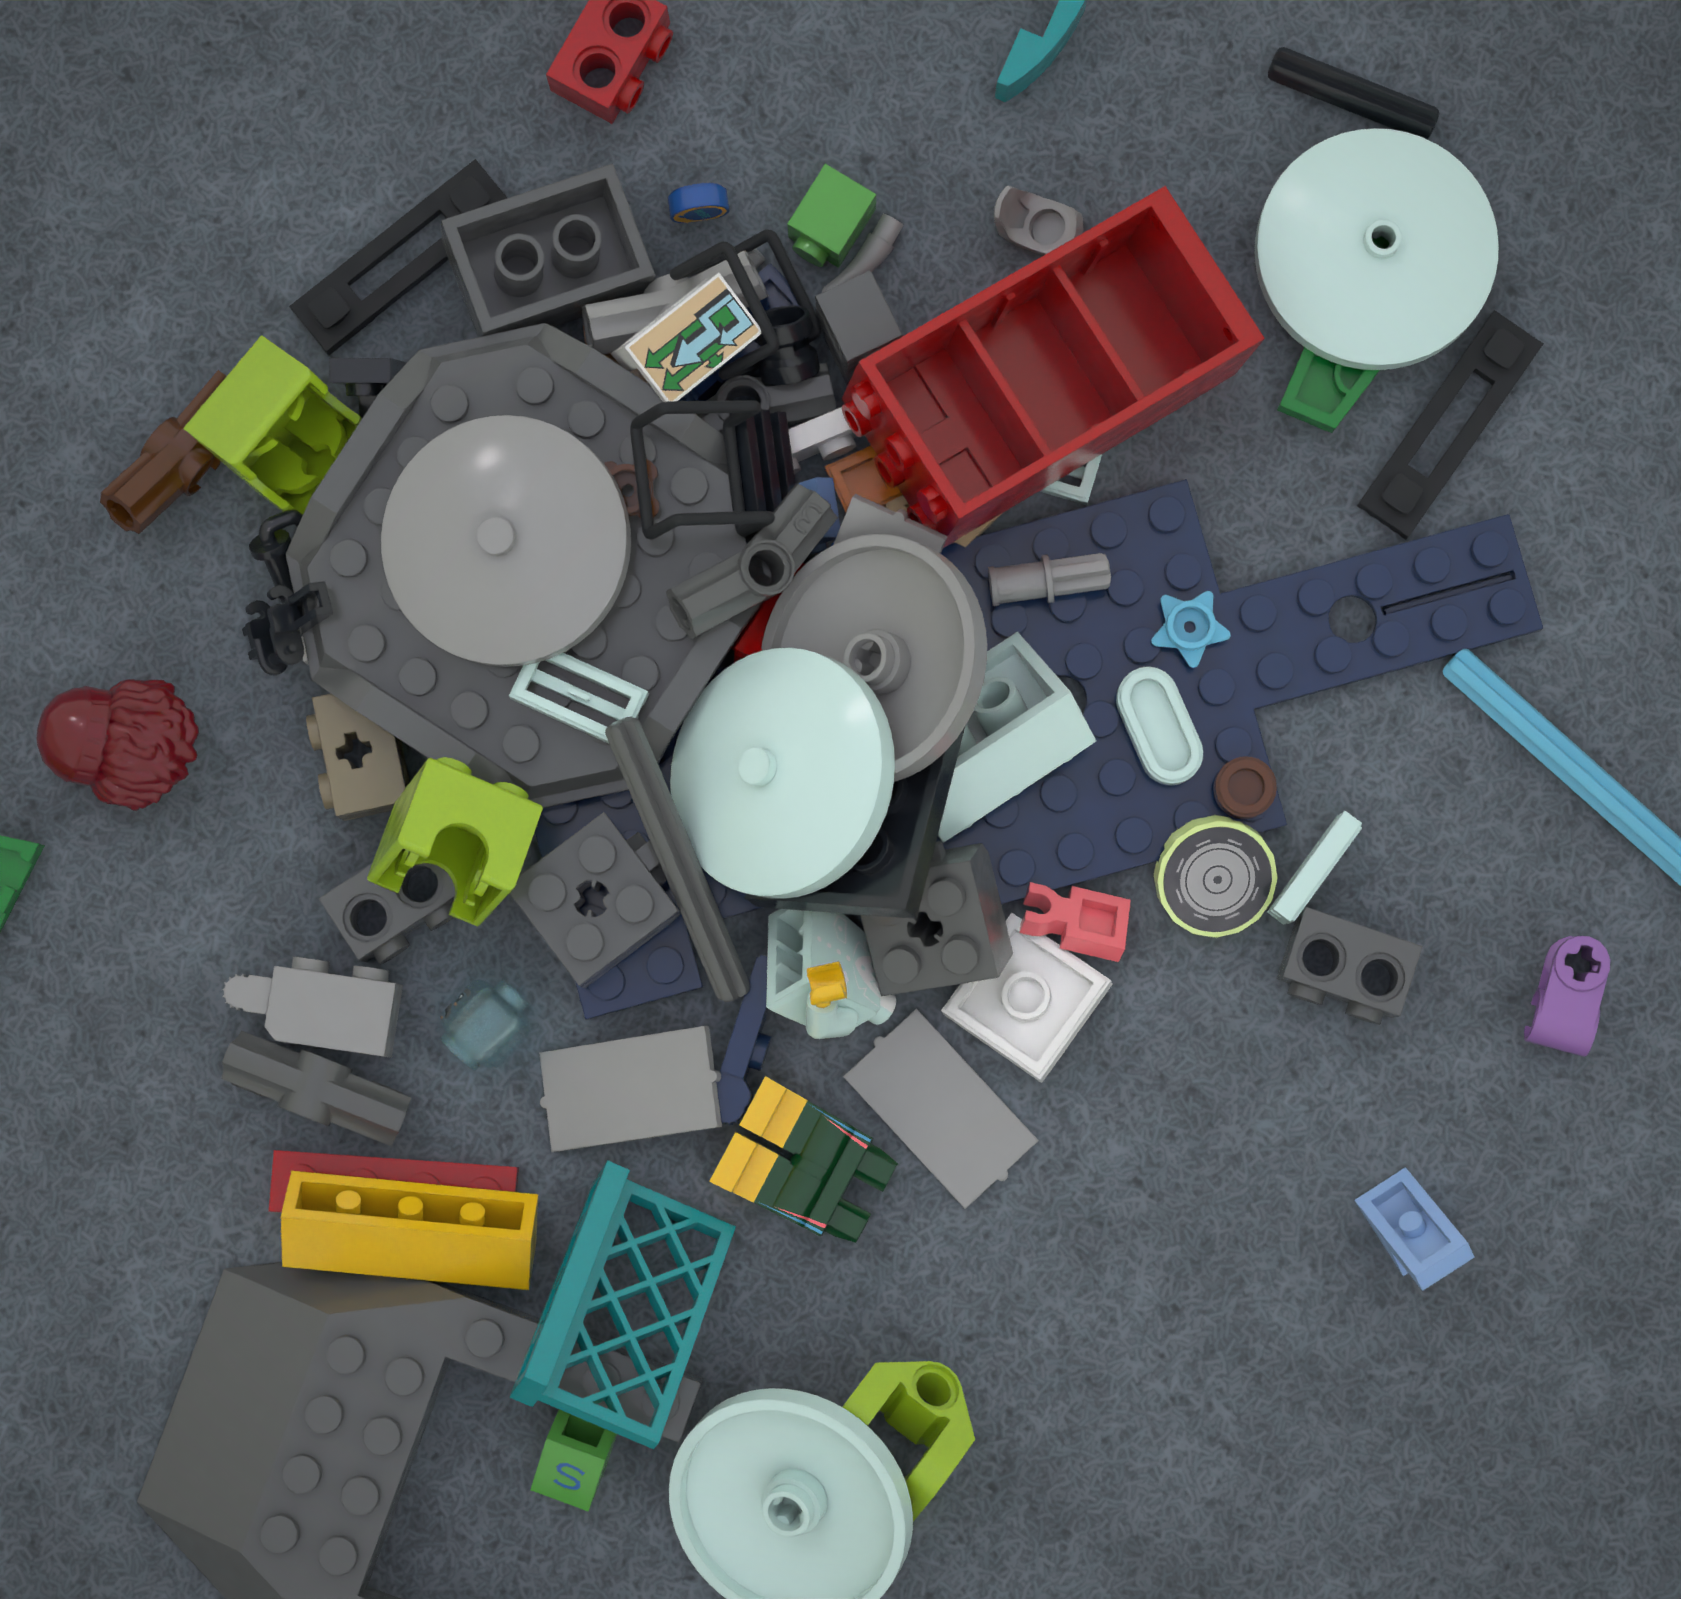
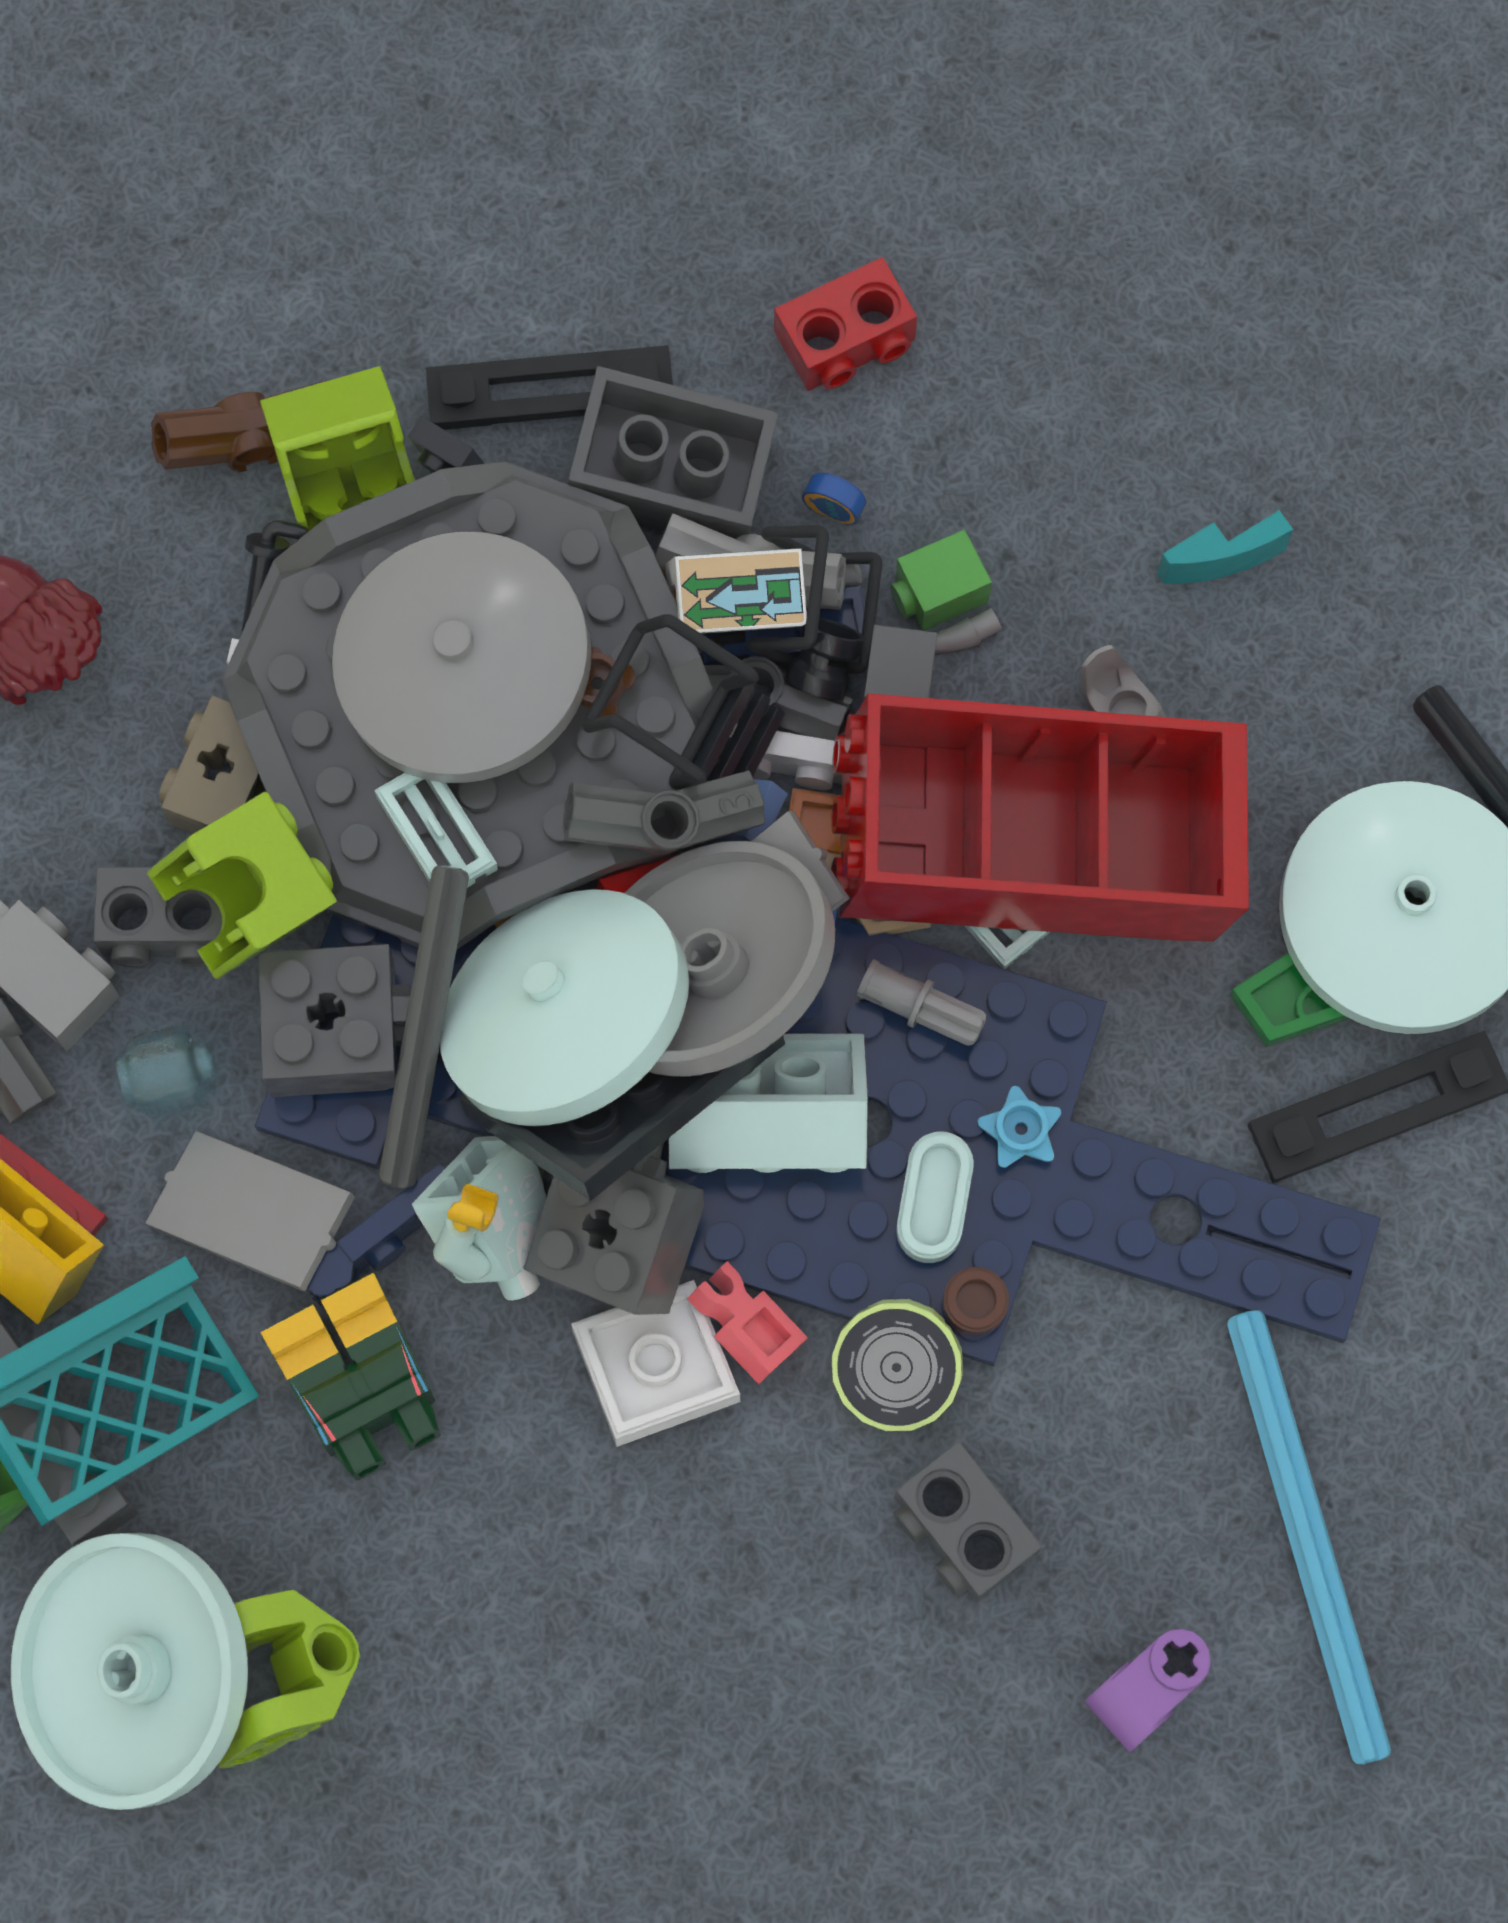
camera: 30 degrees right, 10 degrees down
(278, 631) = (219, 623): black piece -> none
(940, 1108) = (512, 1414): light grey piece -> none
(1315, 868) = (993, 1416): light aqua tile -> none
(1414, 1229) = (865, 1803): light blue slope -> none

